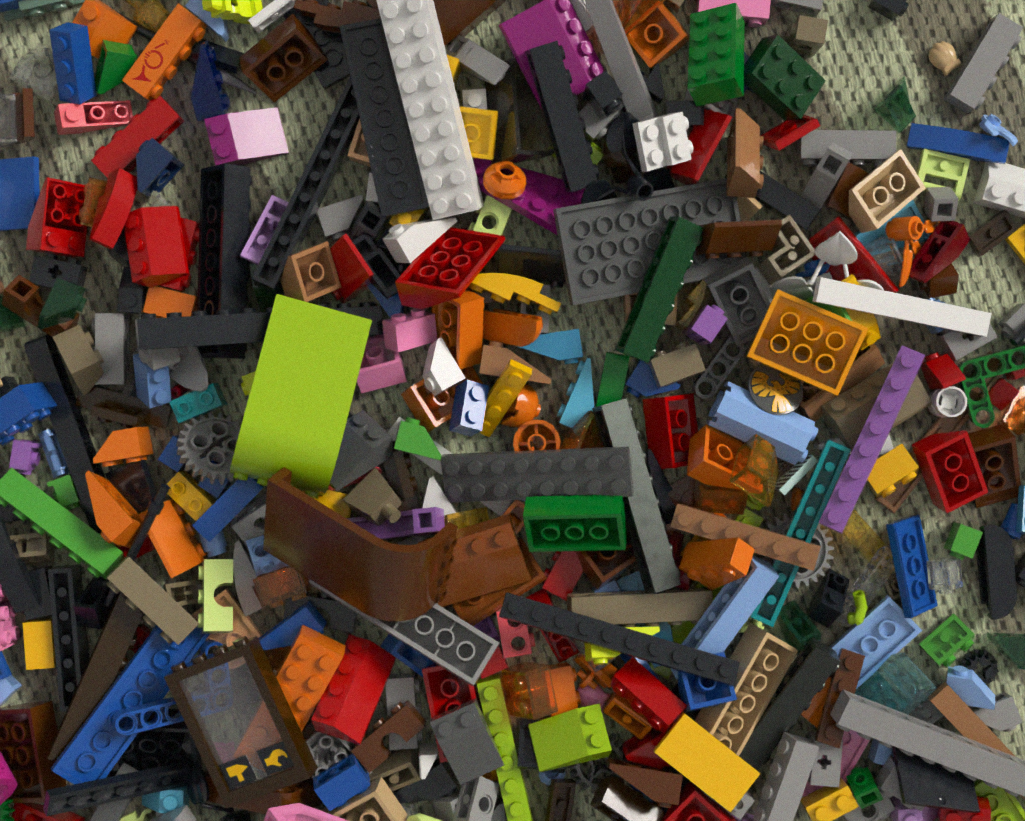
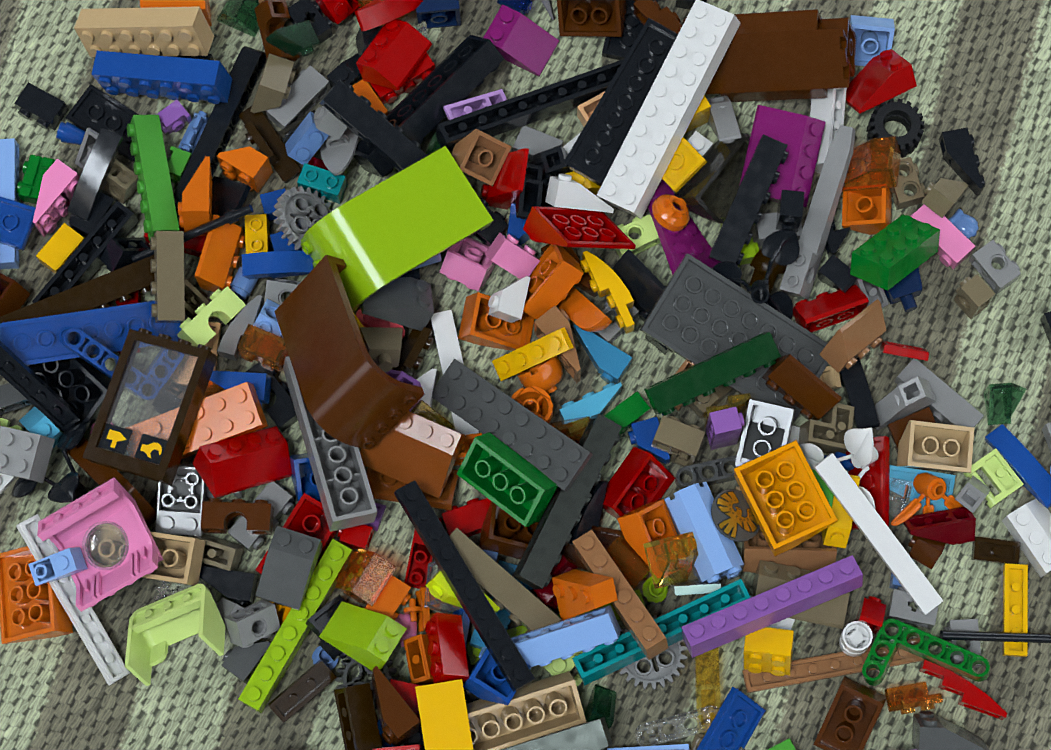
camera: 45 degrees right, 15 degrees down
(341, 782) = (176, 517): blue brick -> none
(415, 439) = (447, 331): bright green slope -> none
(427, 756) = (246, 561): white slope -> none
(469, 408) = (505, 342): brick -> none
(509, 632) = (388, 528): coral brick -> none
(662, 141) = (804, 276): white plate -> none
(782, 78) = (930, 309): dark green brick -> none
(829, 598) = (642, 710): black slope -> none
(860, 608) = (659, 735): lime arm -> none
(950, 469) = (815, 689): red slope -> none
(1002, 394) = (903, 674): red slope -> none

